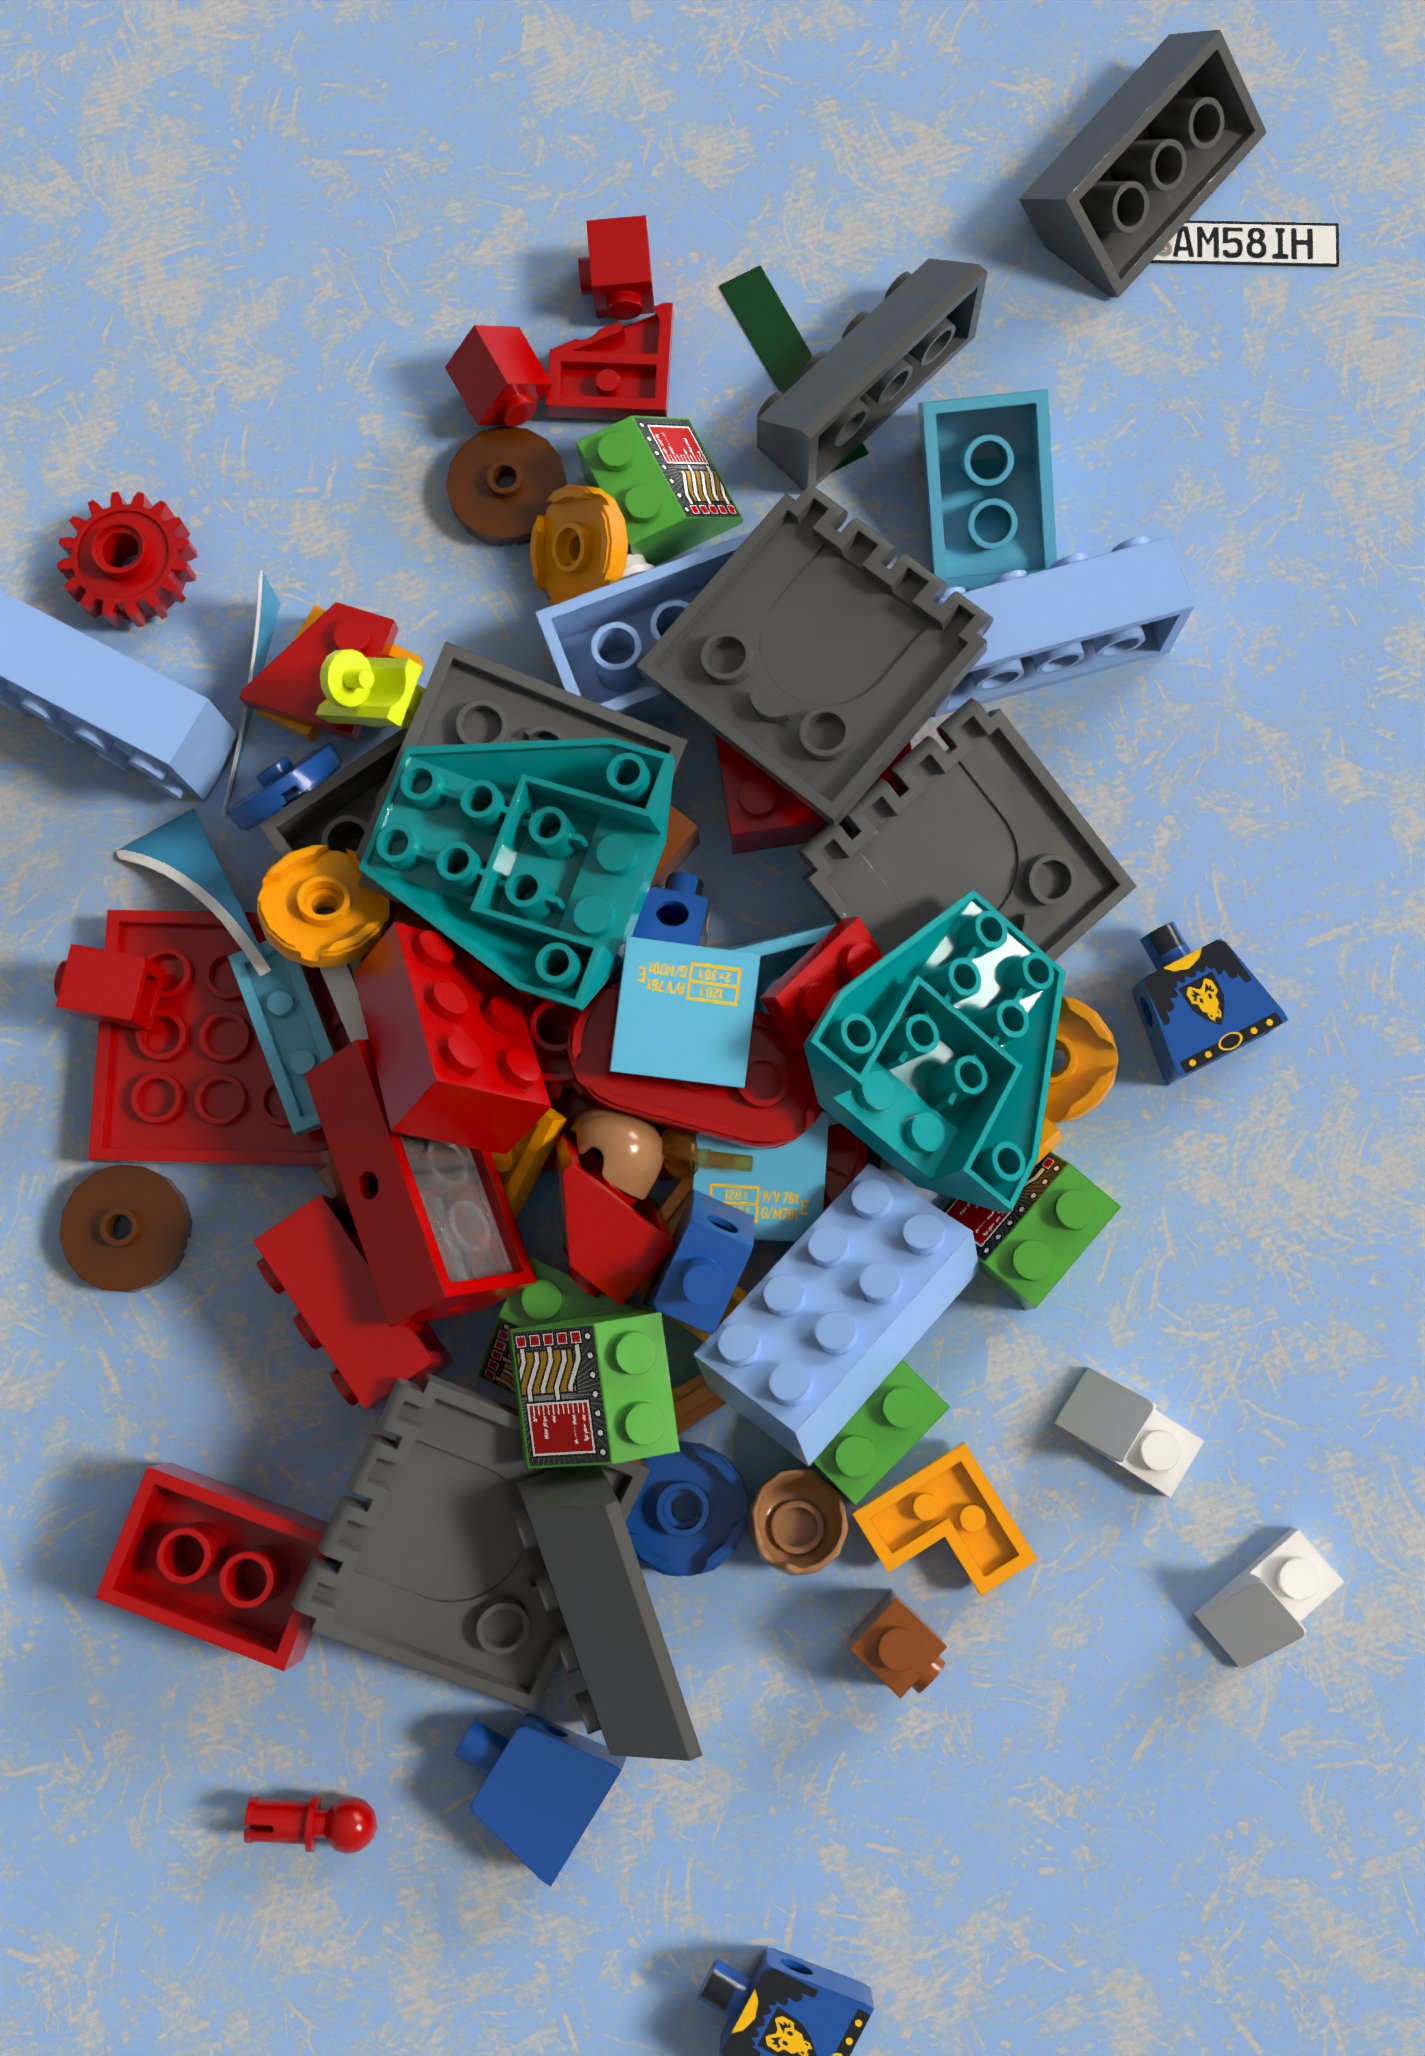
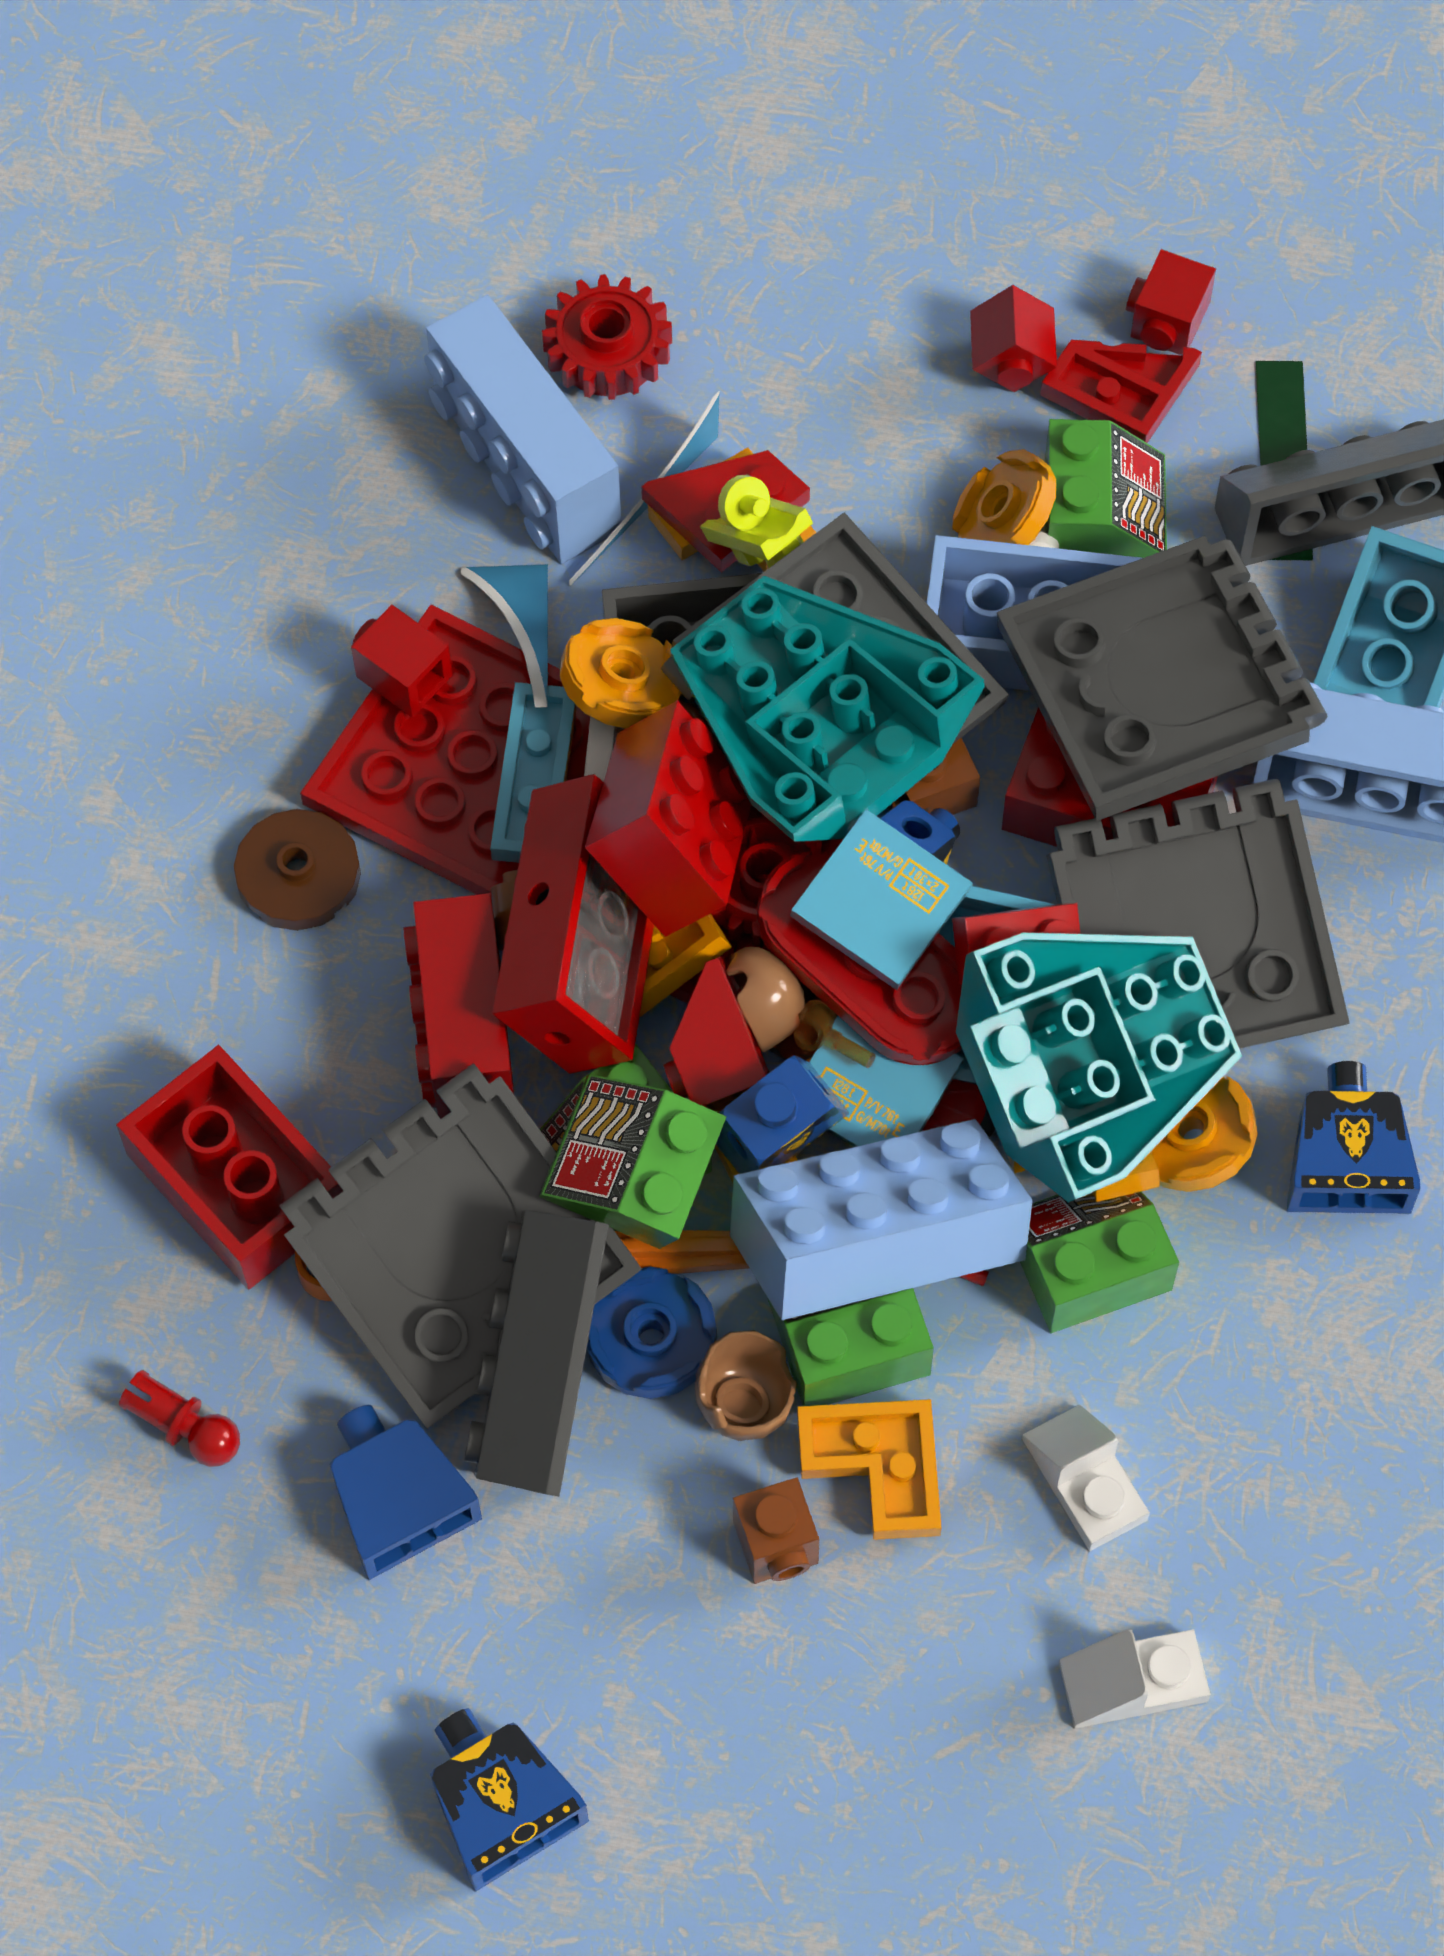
camera: 20 degrees right, 15 degrees down
(284, 783) = (638, 569): blue plate -> none
(495, 512) = (950, 450): reddish brown plate -> none

